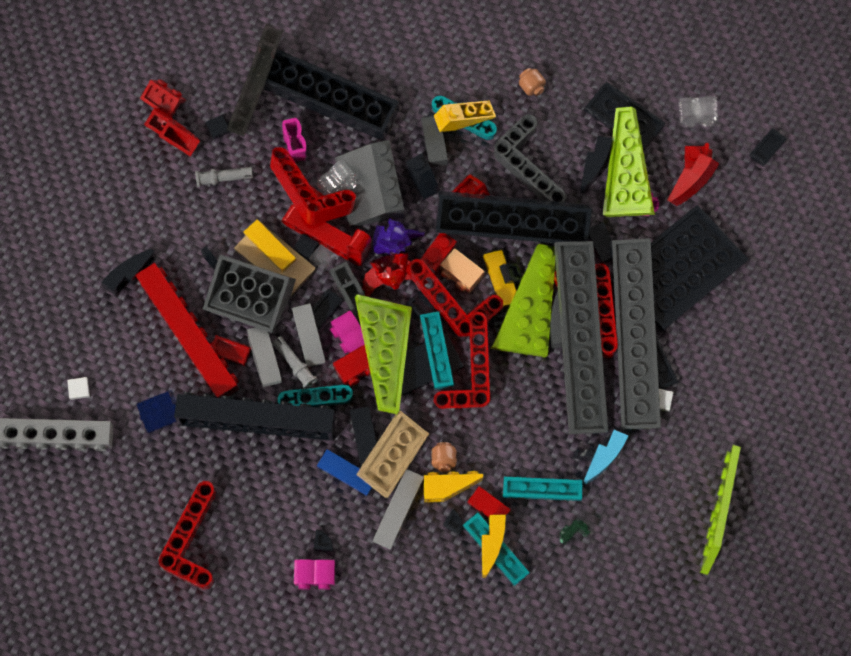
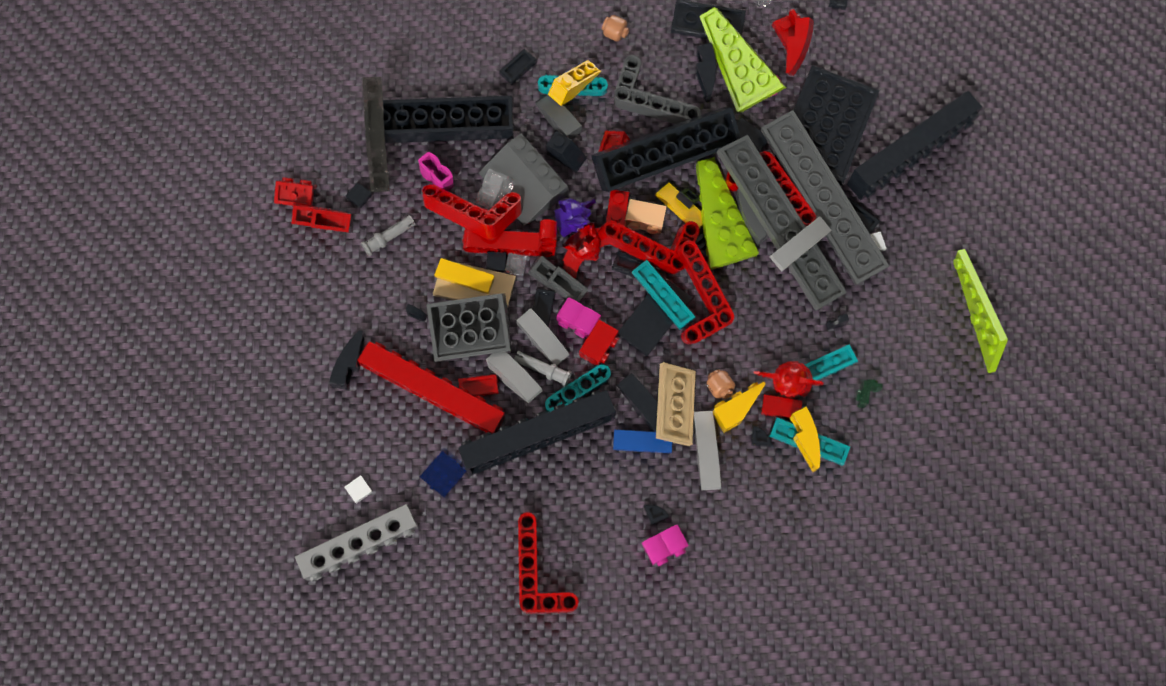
camera: 30 degrees left, 0 degrees up
(385, 339) = (615, 308): lime wing -> none
(423, 76) = (518, 66): none -> black tile
(510, 484) = (791, 379): none -> red helmet
(584, 365) = (800, 243): none -> light grey slope
(605, 456) = (856, 313): medium azure slope -> none
(749, 327) = (914, 145): none -> black brick

